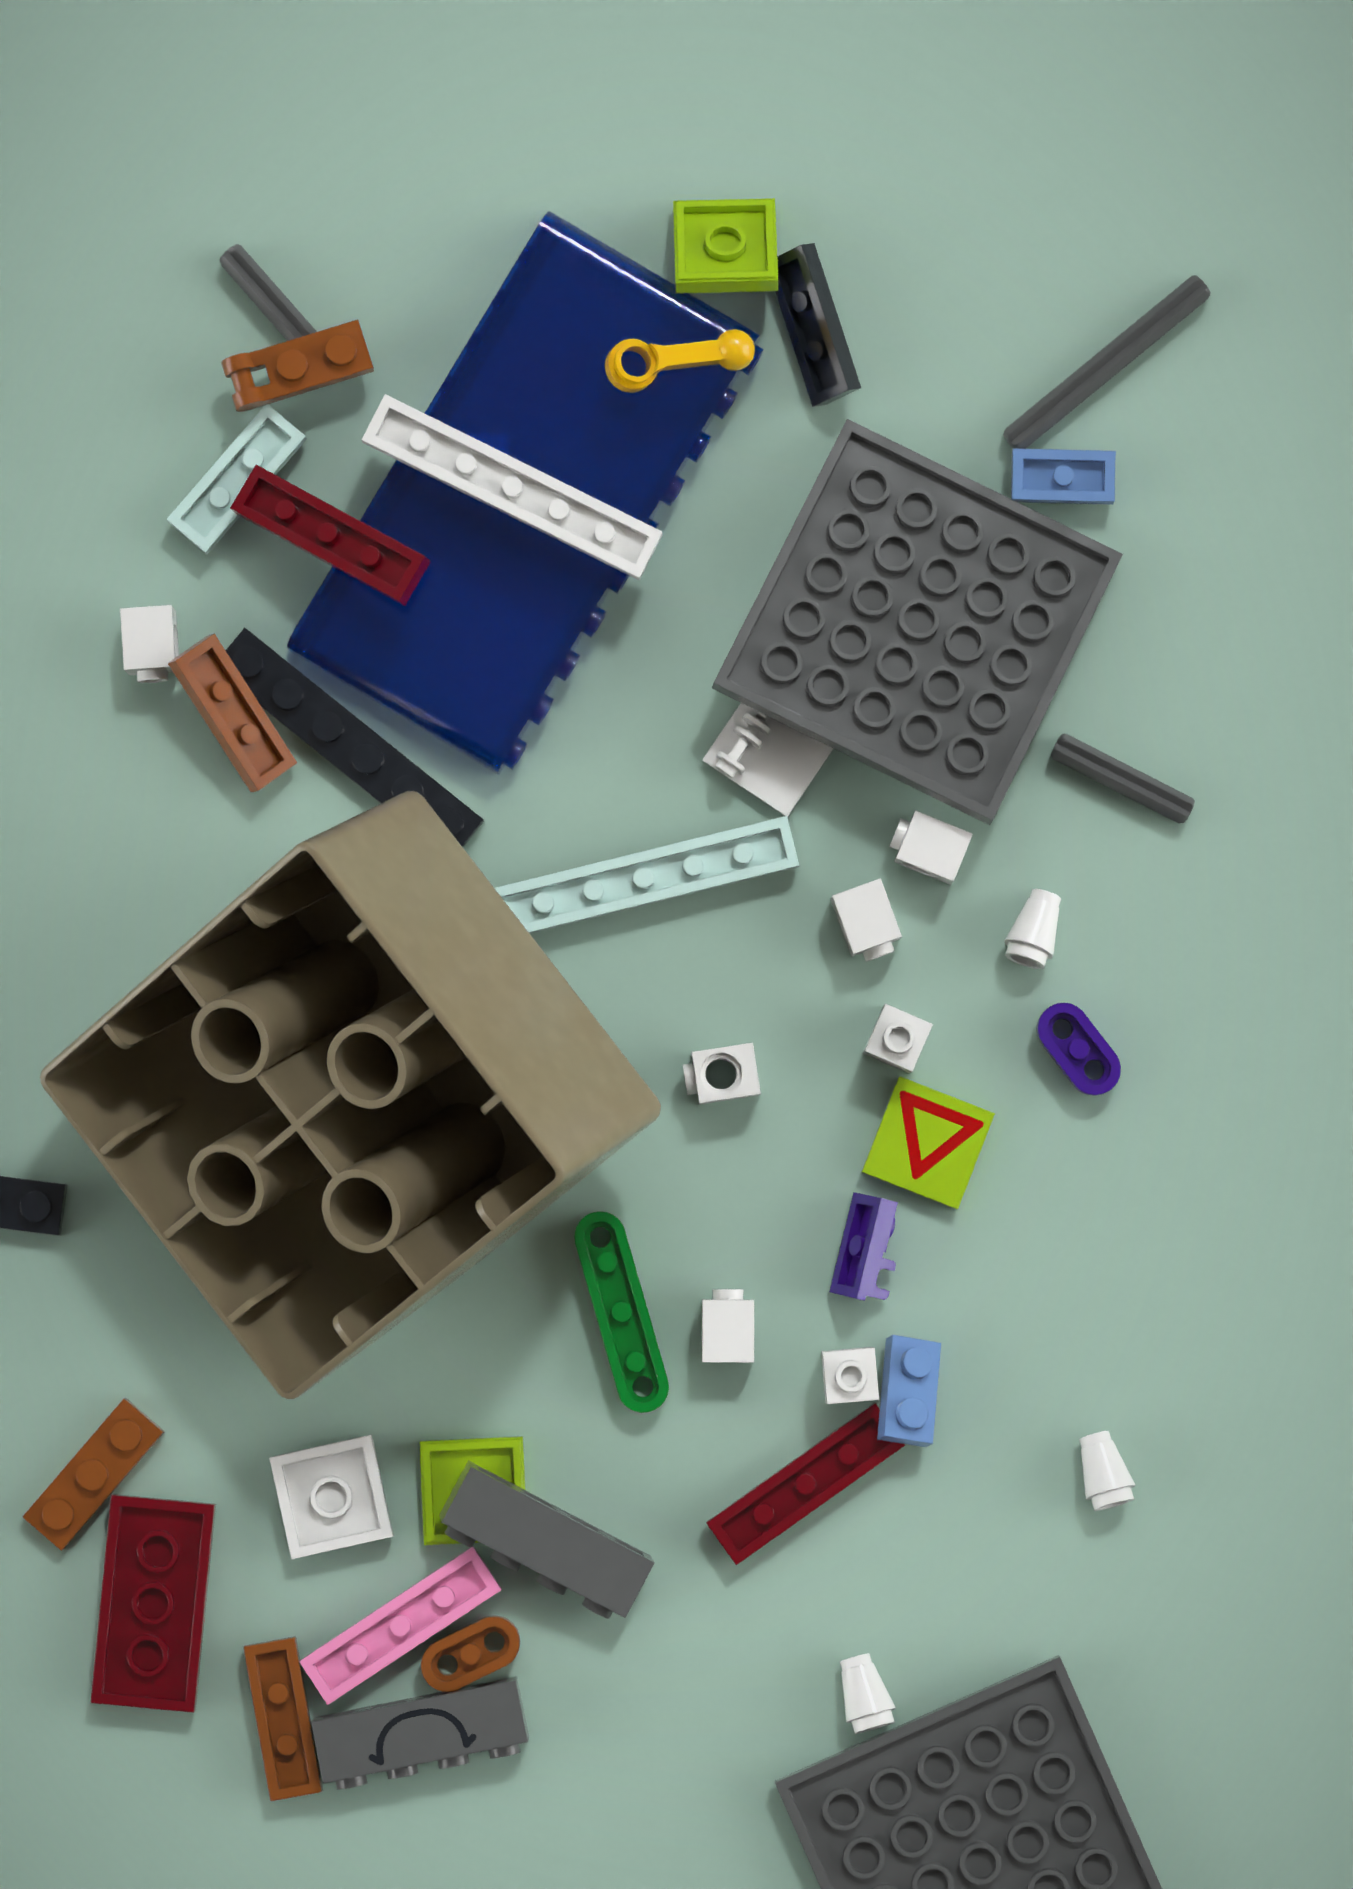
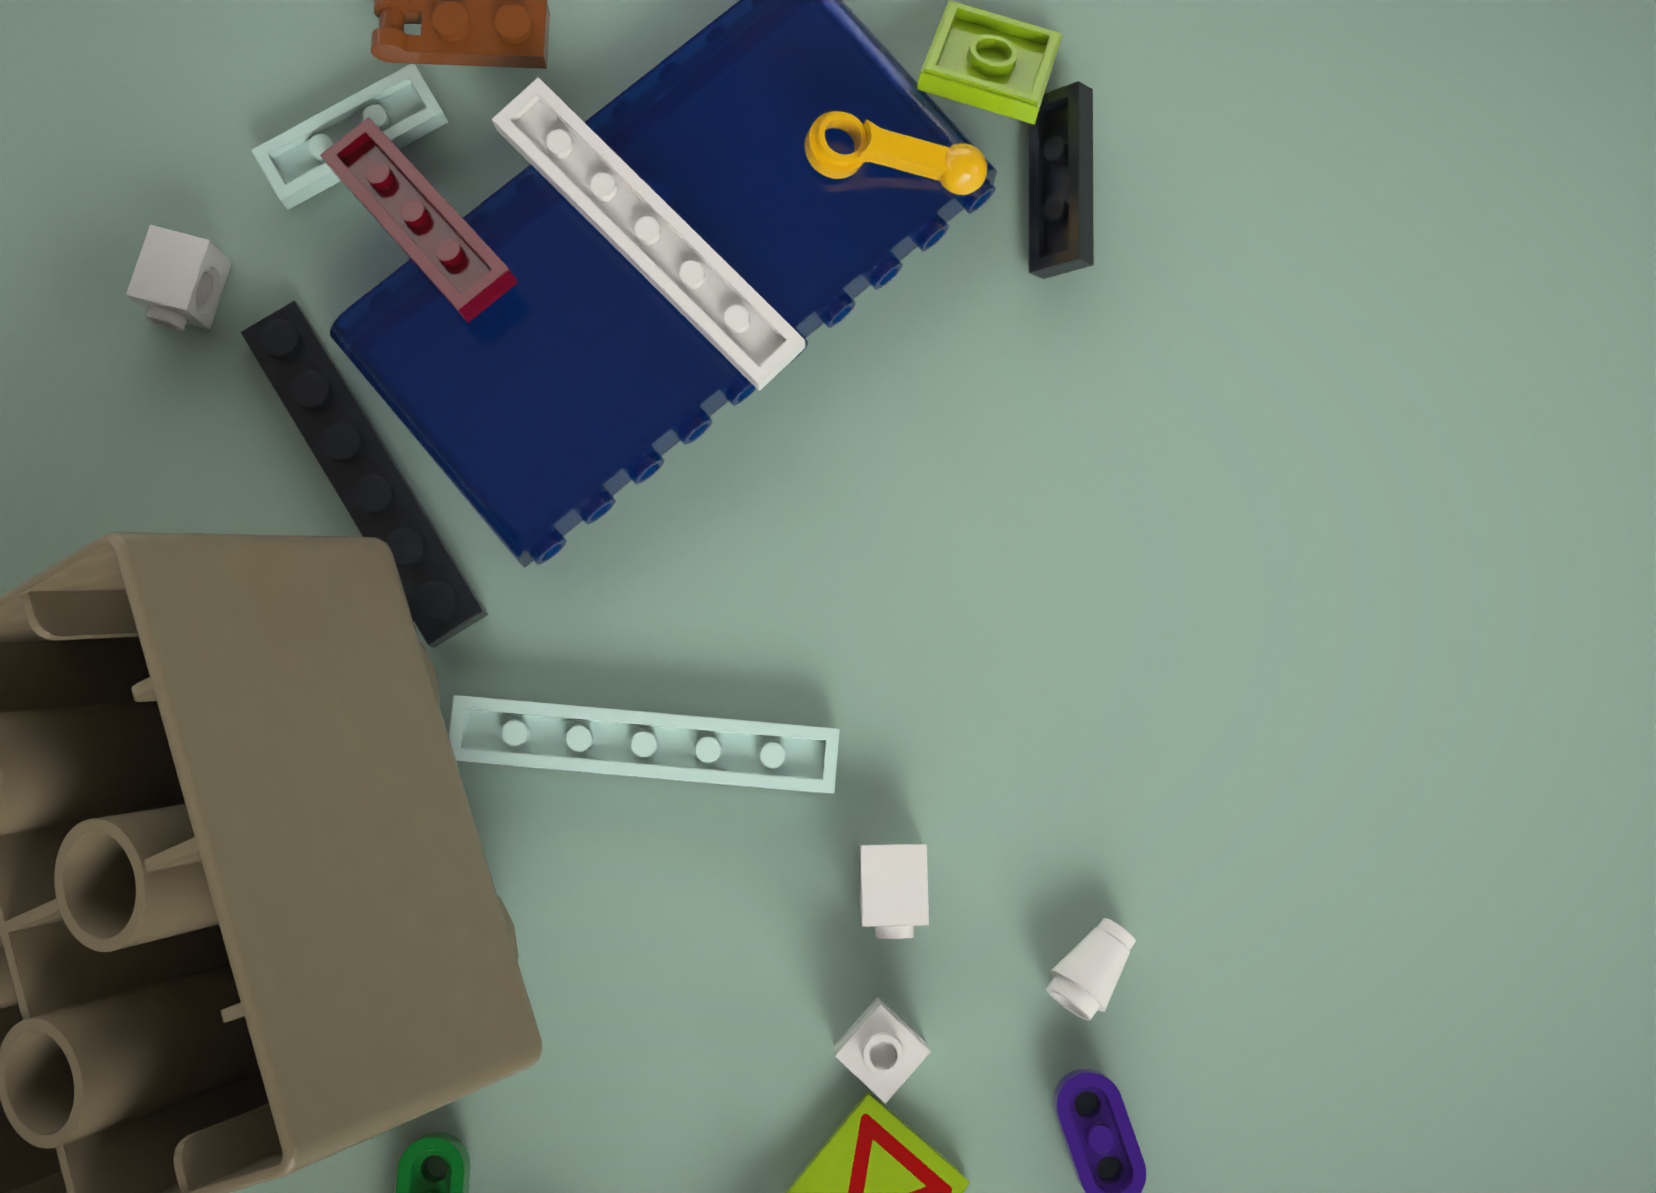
camera: 20 degrees right, 5 degrees down
(232, 713) = (235, 387): dark orange plate -> none
(742, 1059) = (684, 1010): white brick -> none
(767, 758) = (852, 641): white hinge -> none
(917, 621) = (1070, 557): dark grey plate -> none
(930, 846) = (1000, 825): white brick -> none
(1063, 476) = (1294, 444): medium blue plate -> none
(1107, 363) = (1381, 336): dark grey axle -> none
(1122, 778) = (1255, 821): dark grey axle -> none

